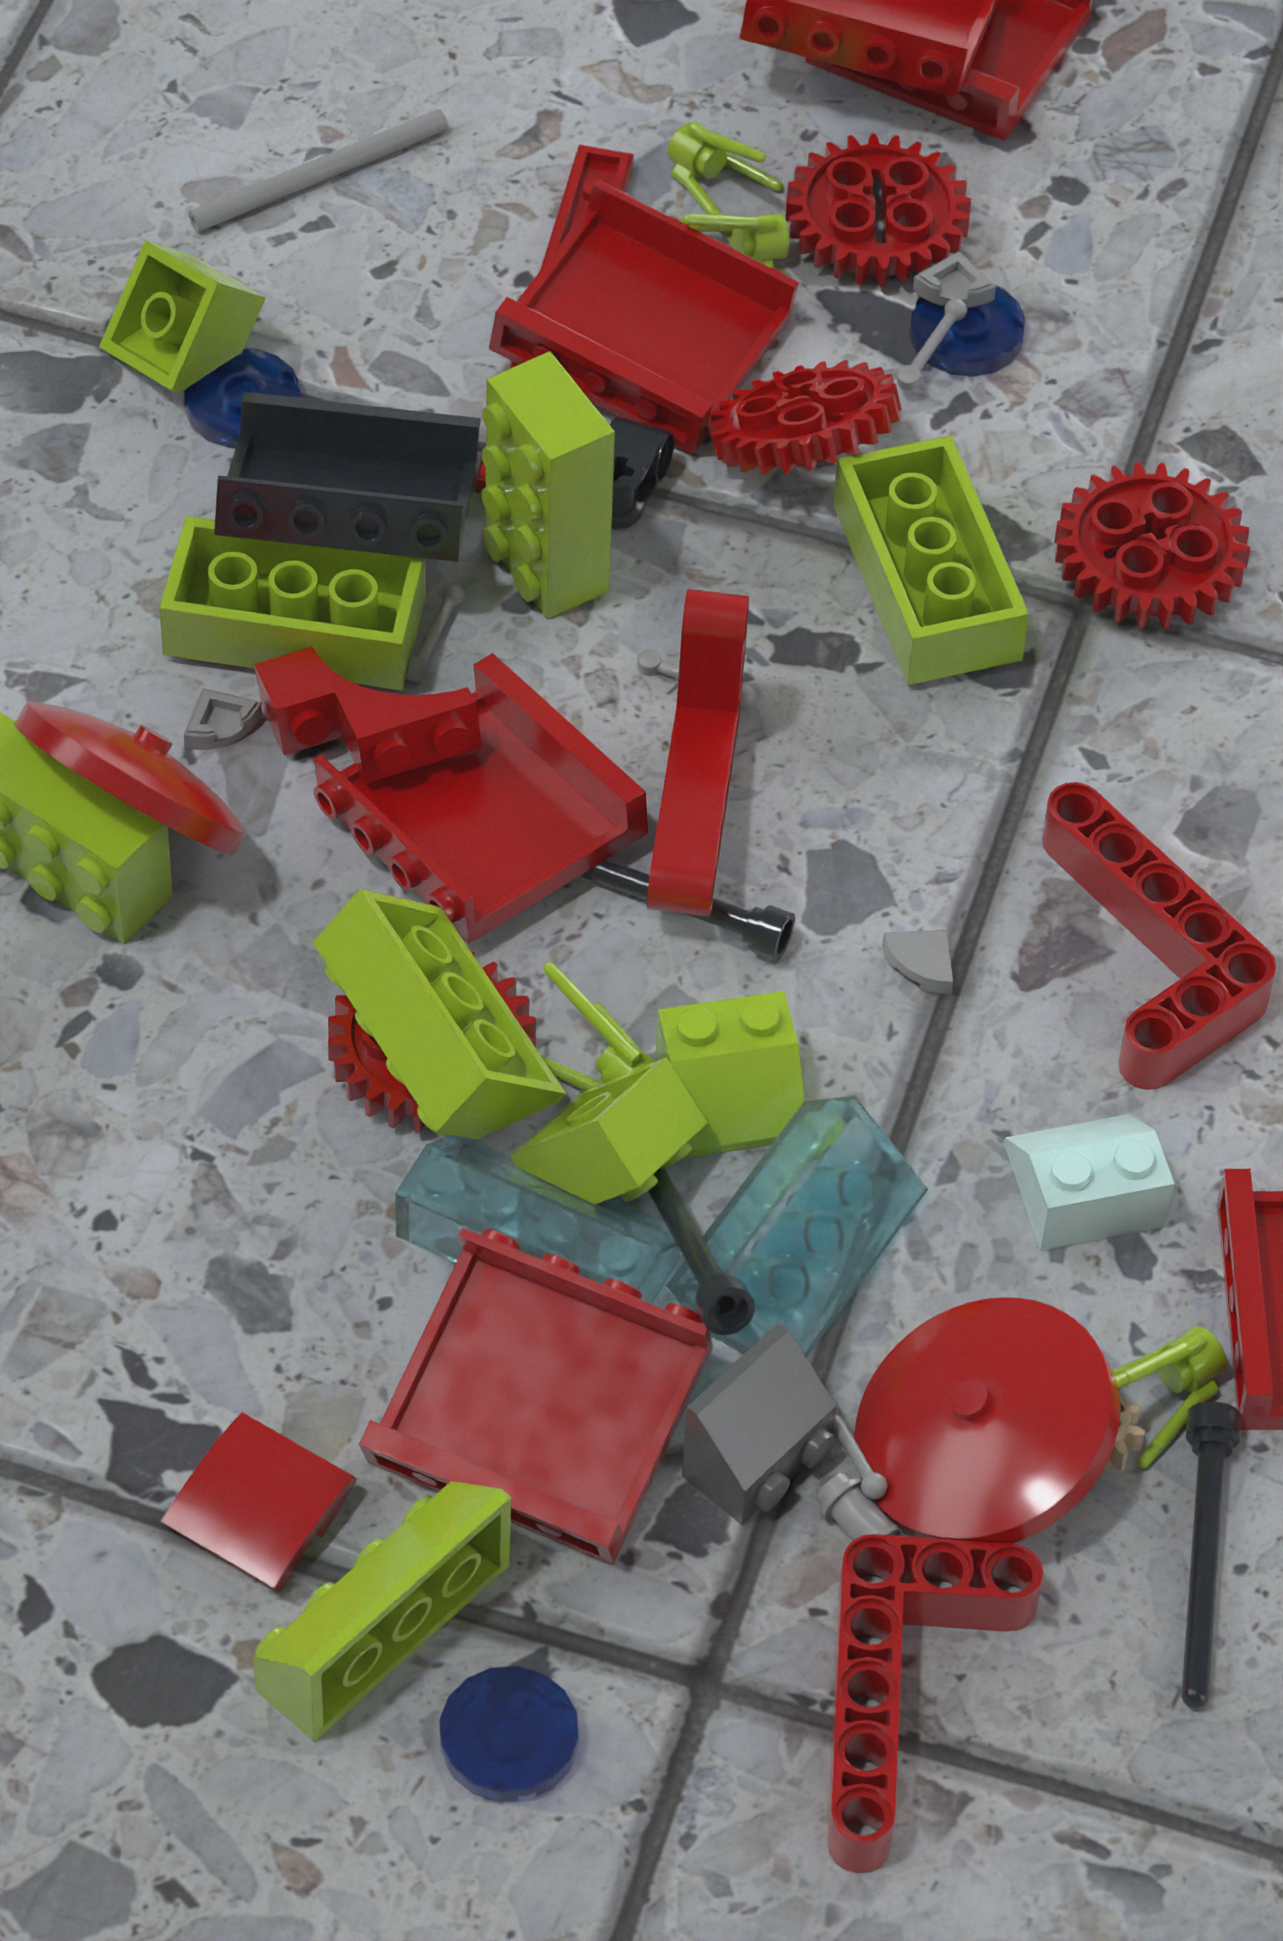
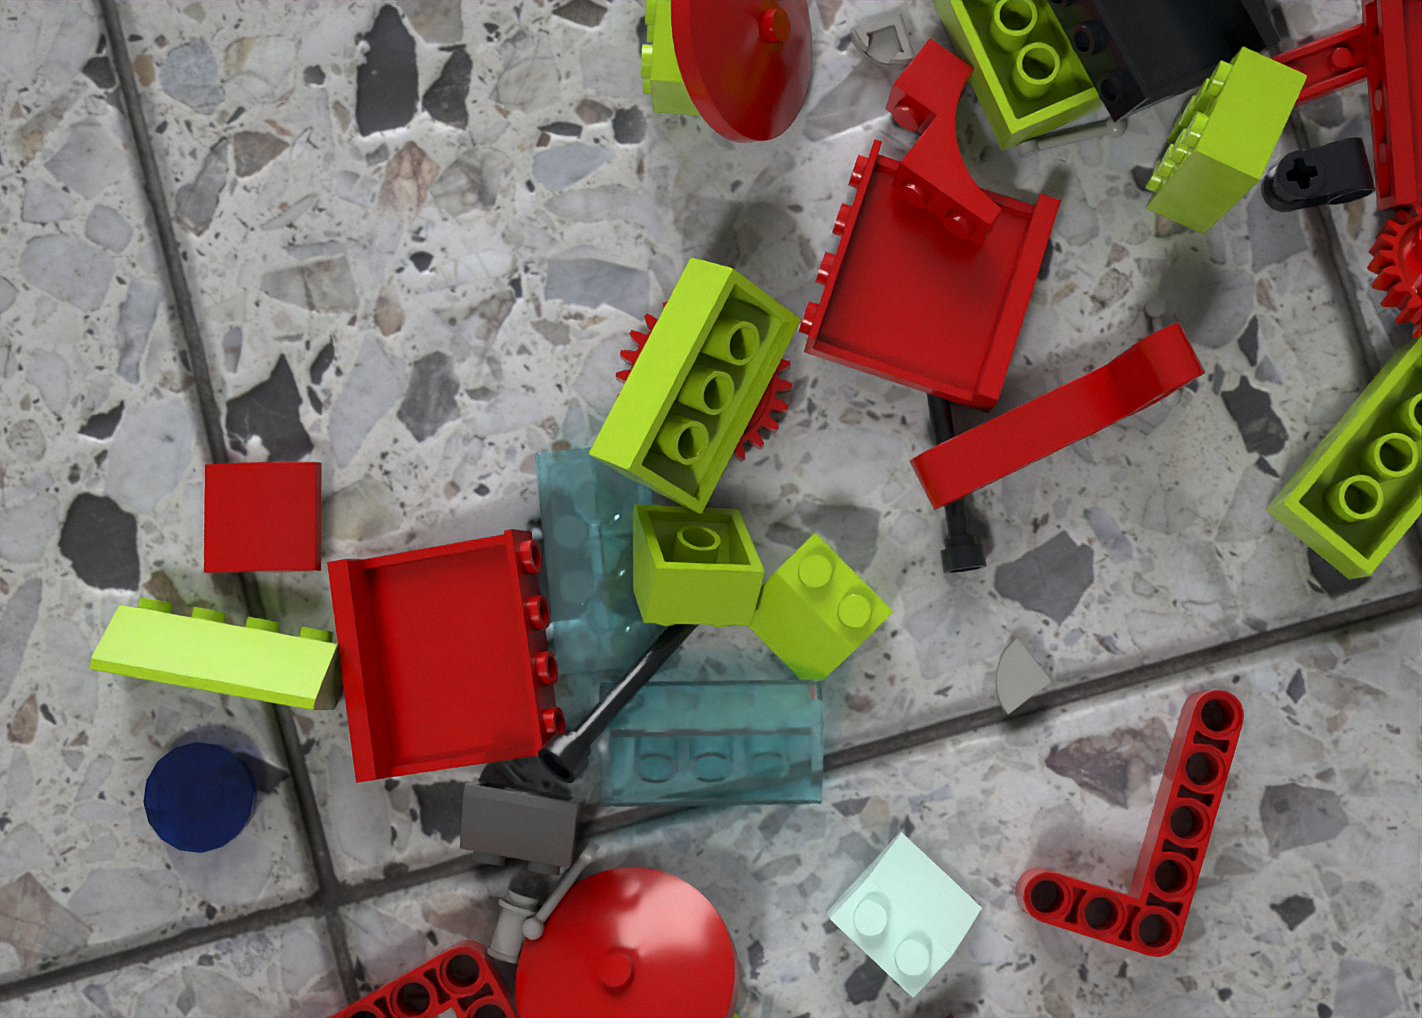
camera: 60 degrees right, 30 degrees up
(617, 1059) = (771, 530): lime plant -> none

